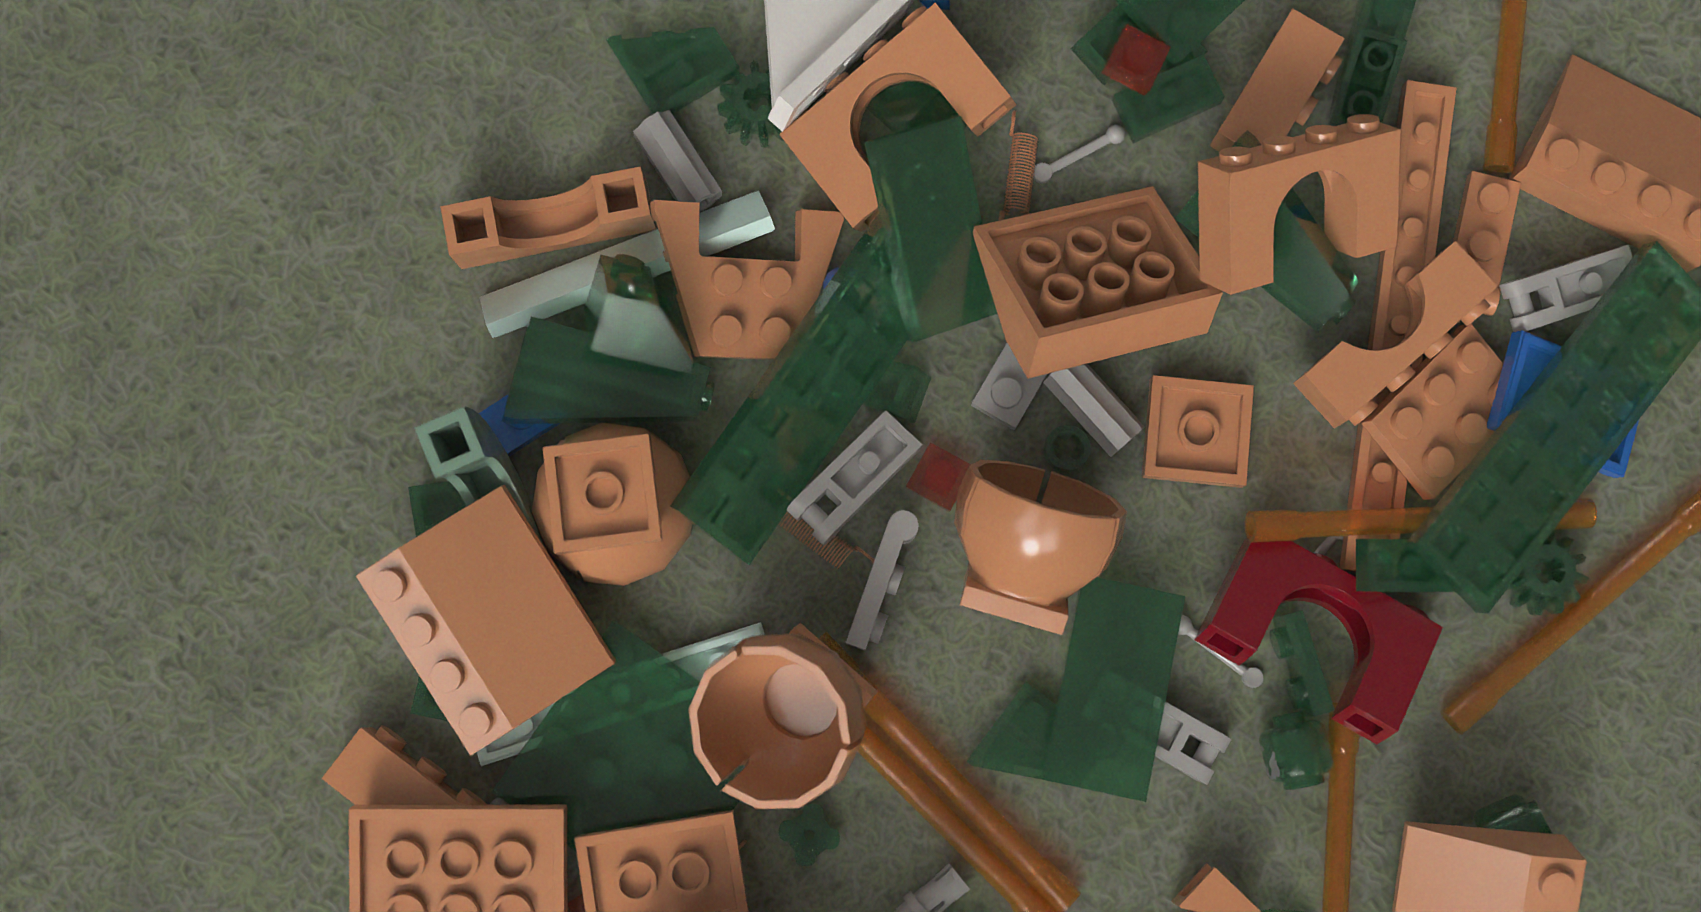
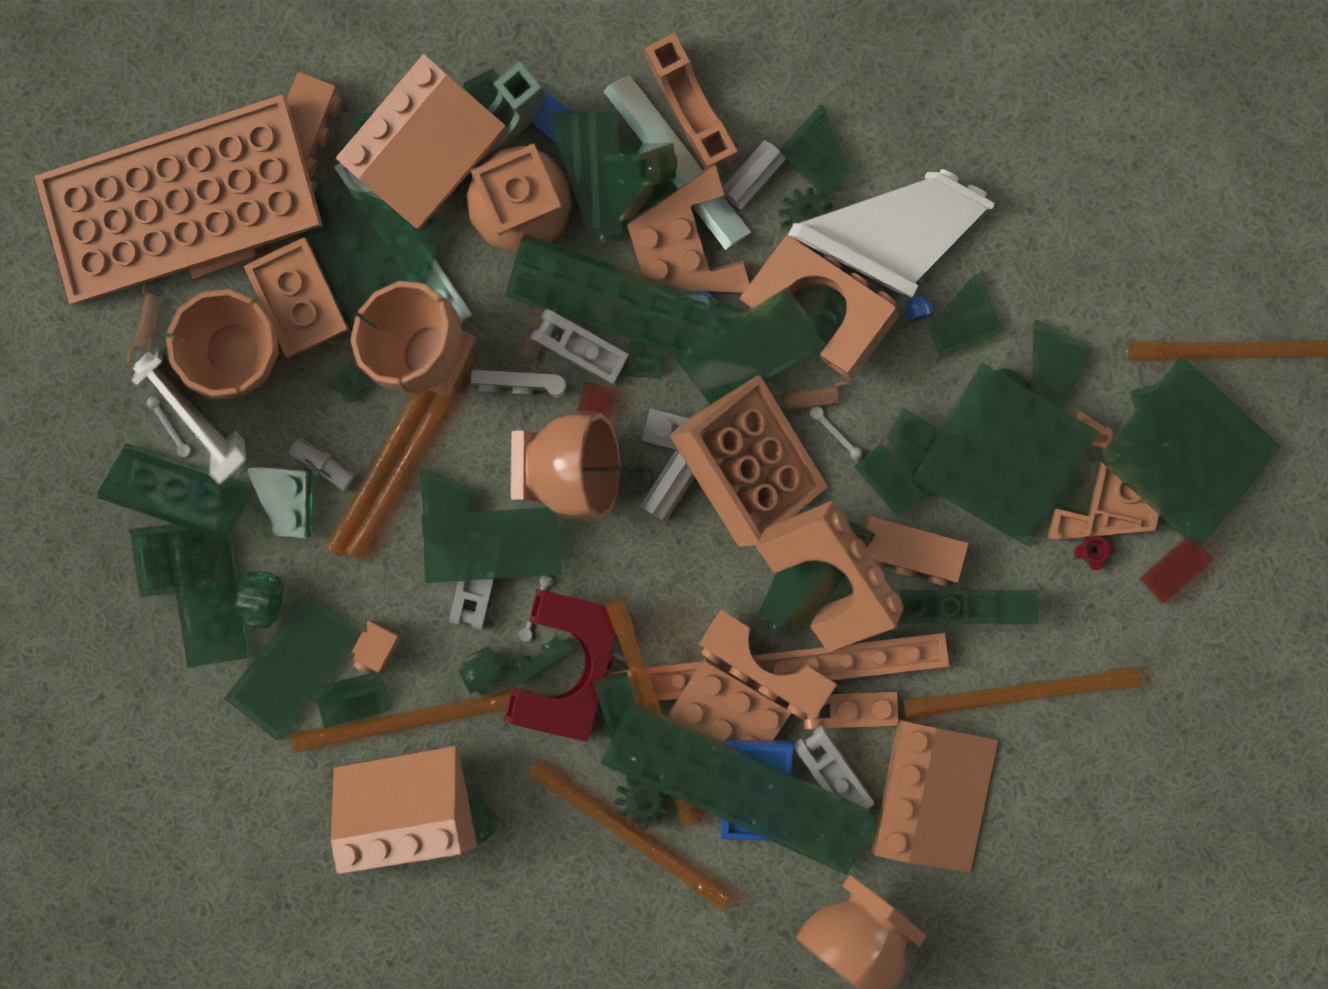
camera: 70 degrees right, 5 degrees up
(1135, 59) = (904, 450): clear red plate -> none
(1197, 431) = (672, 557): nougat plate -> none

